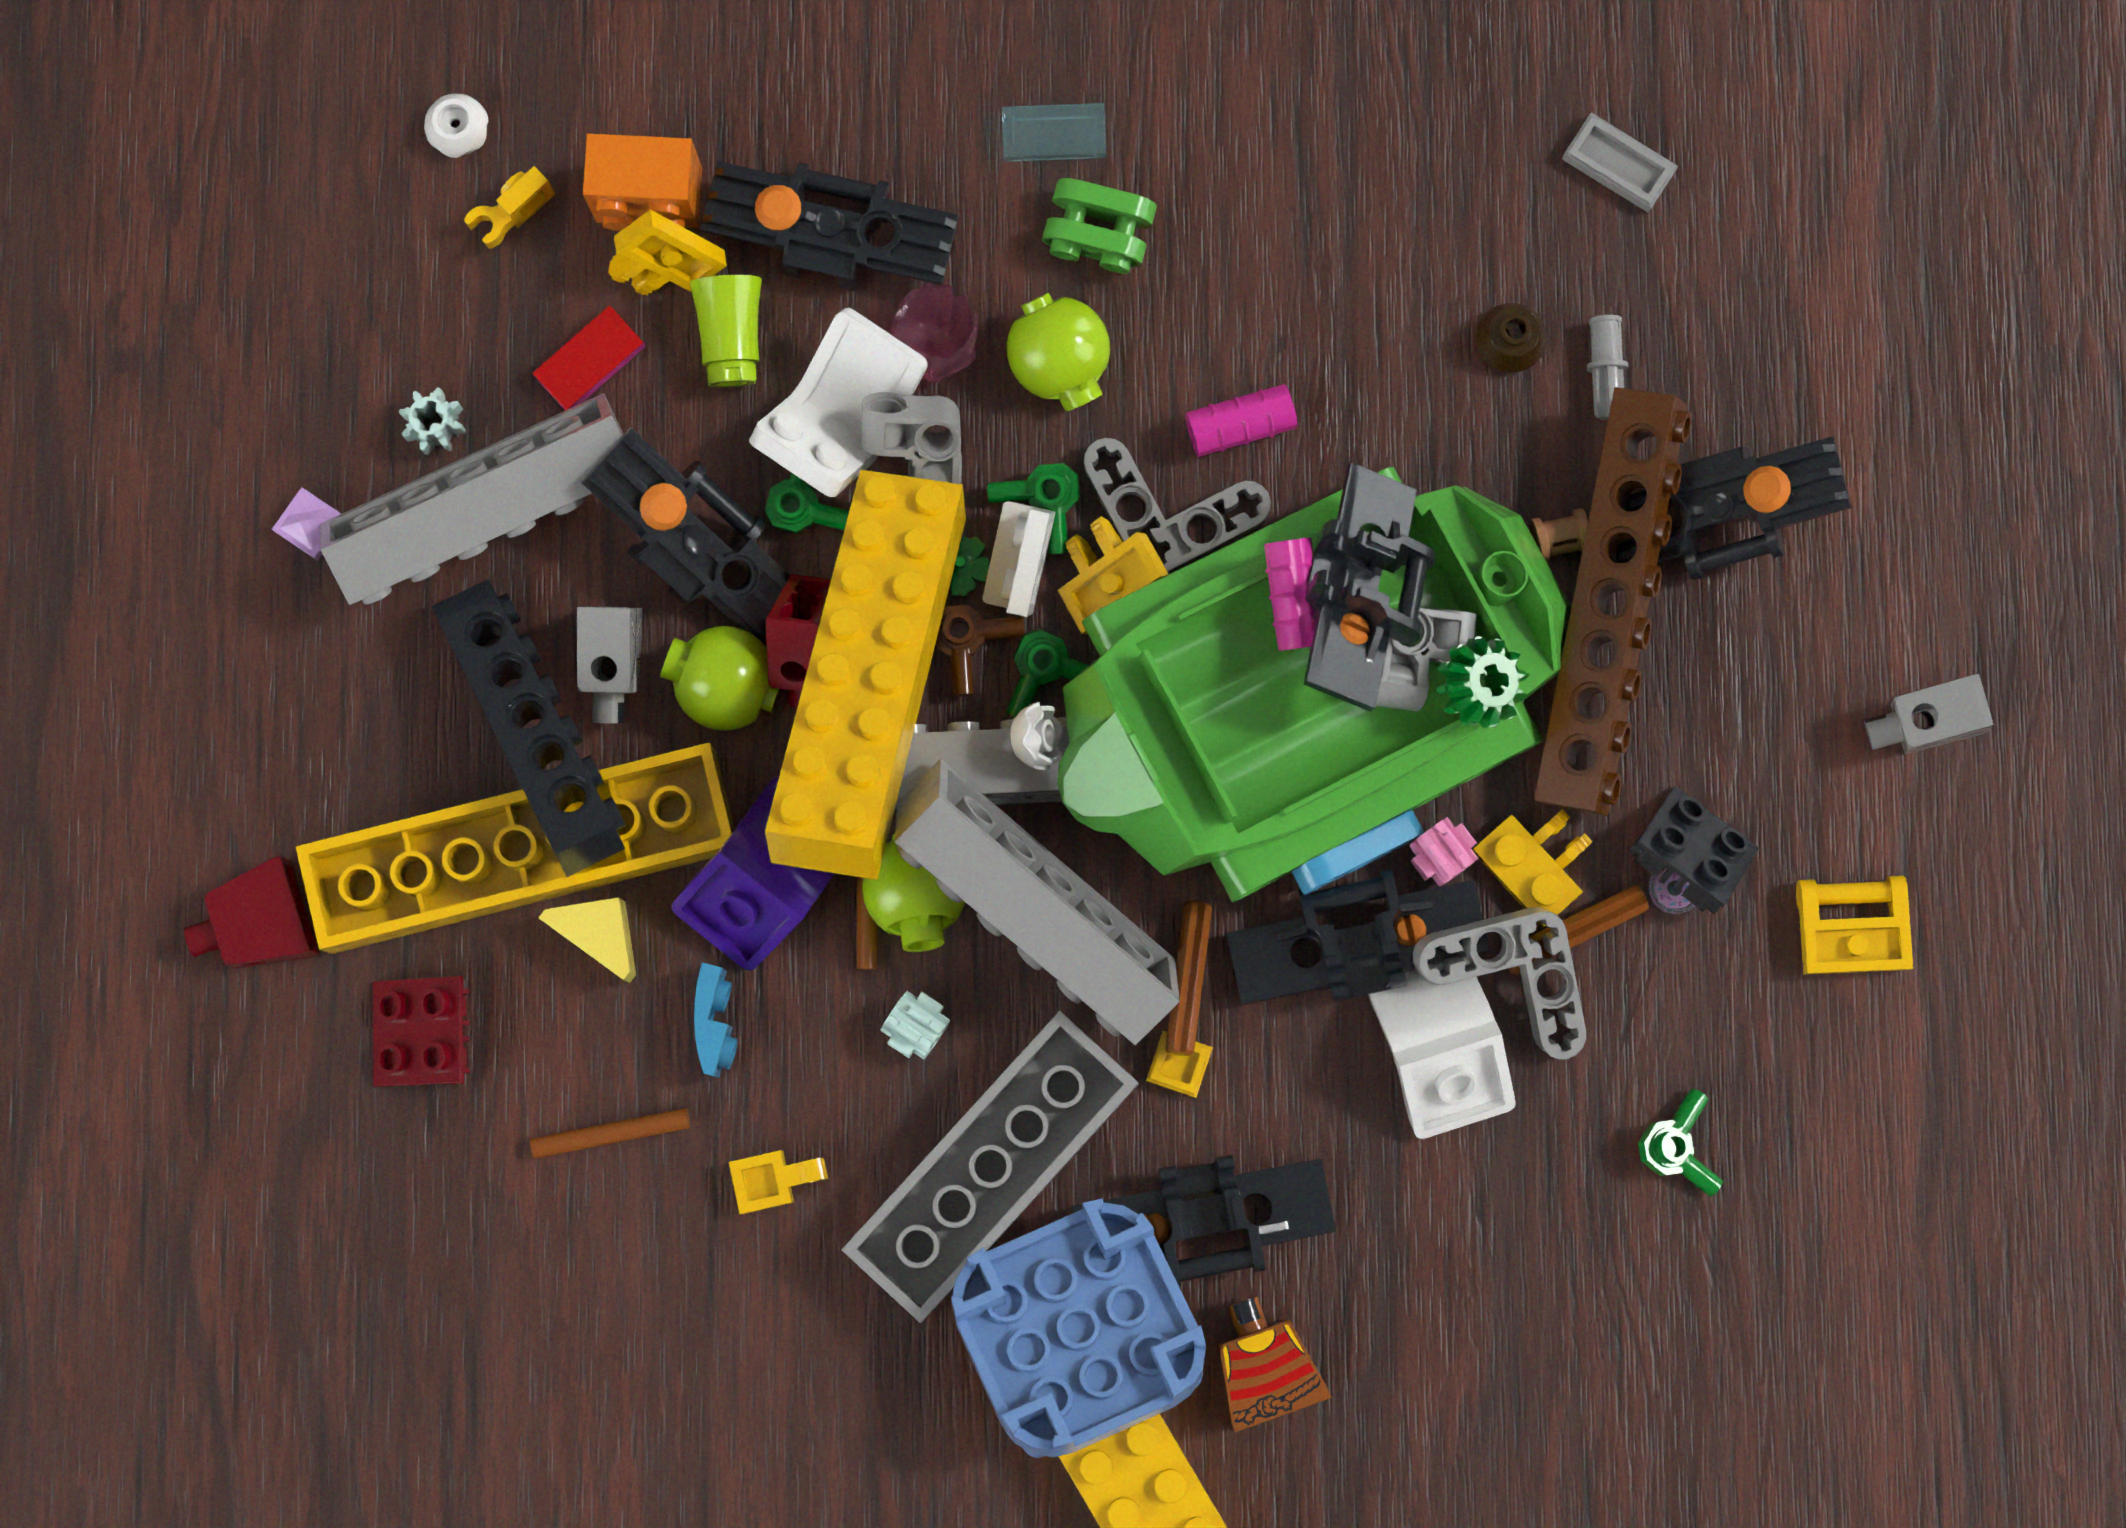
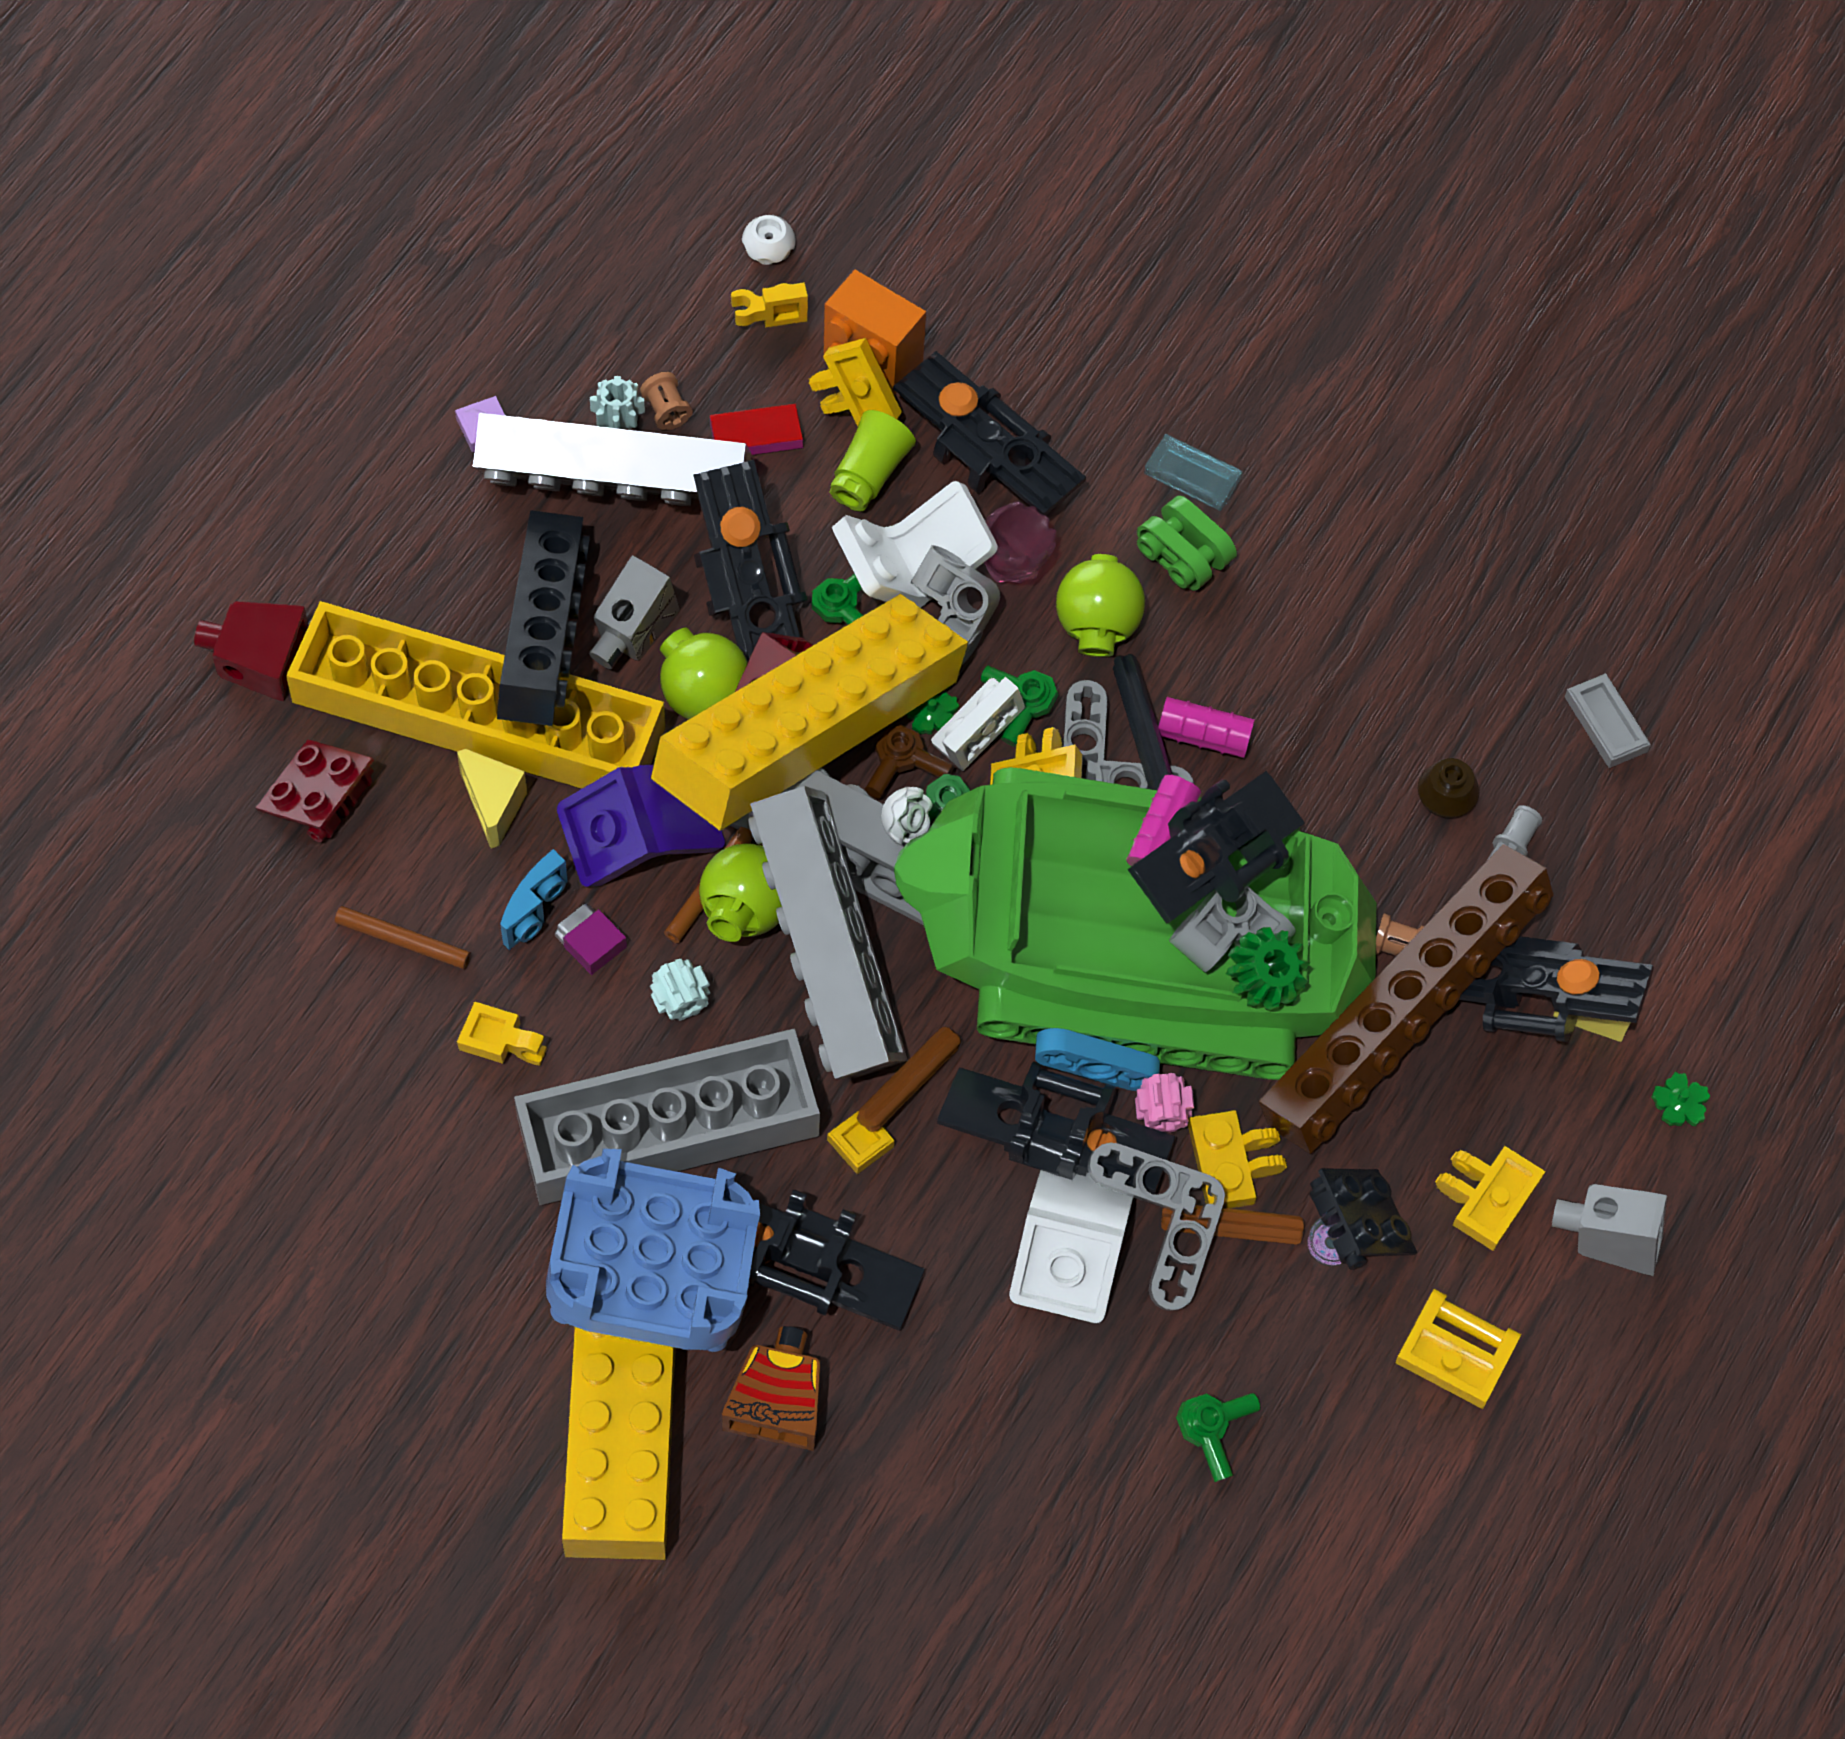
camera: 25 degrees right, 20 degrees down
(487, 399) = (651, 393): none -> nougat bush
(790, 1019) = (590, 938): none -> magenta piece
(1183, 460) = (1141, 720): none -> black axle
(1804, 749) = (1497, 1198): none -> yellow hinge
(1914, 535) = (1680, 1101): none -> green plant

